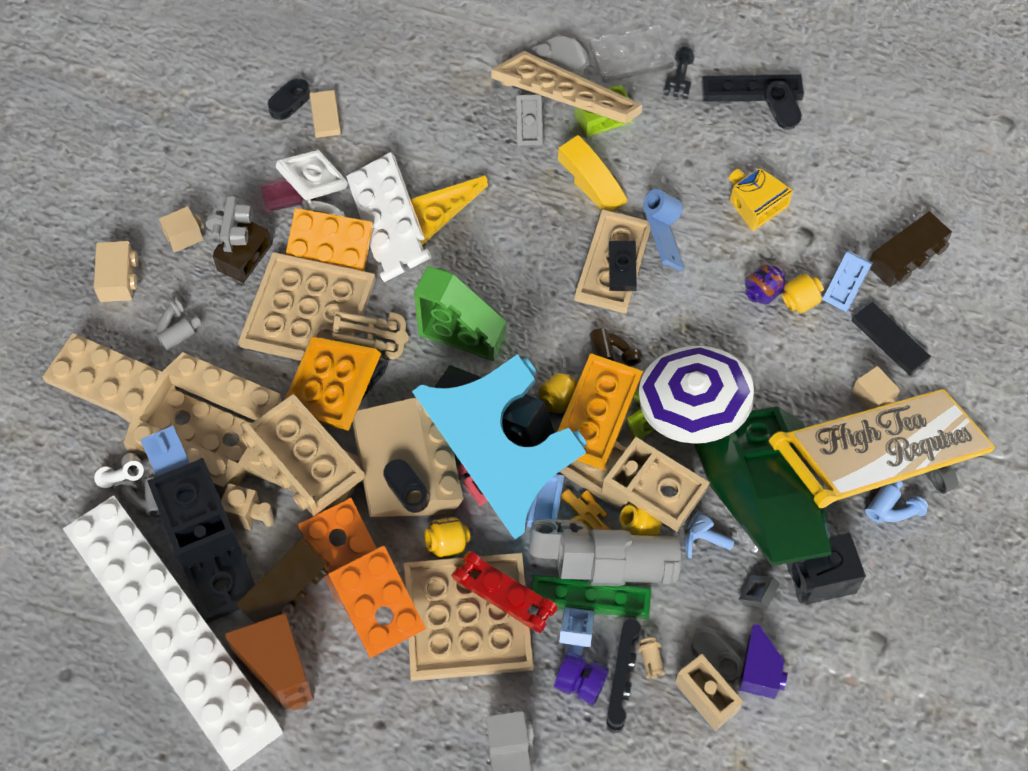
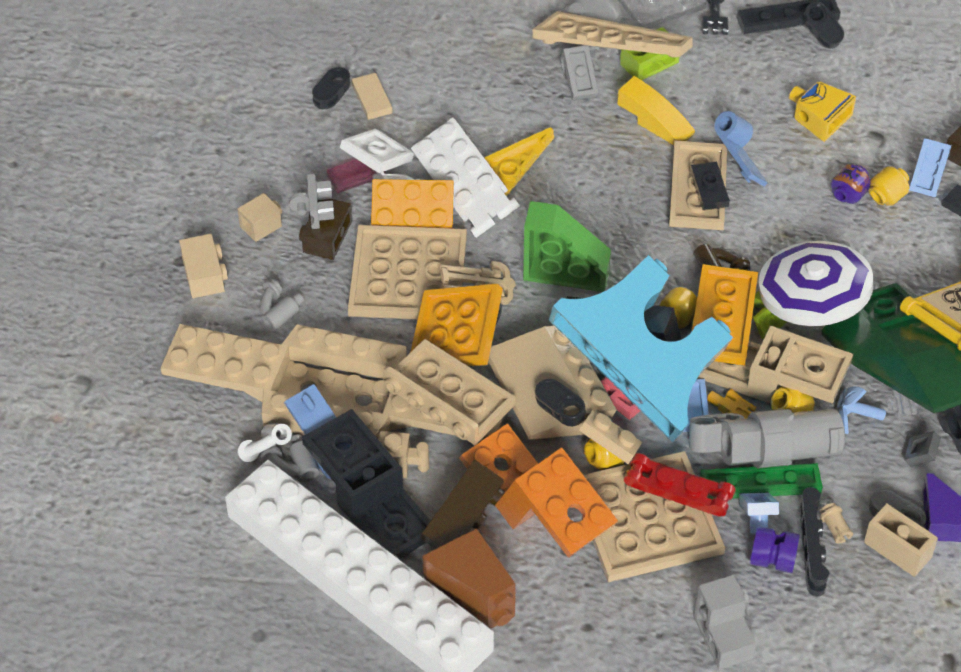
camera: 10 degrees left, 10 degrees down
(447, 529) = (610, 436): none -> tan plate

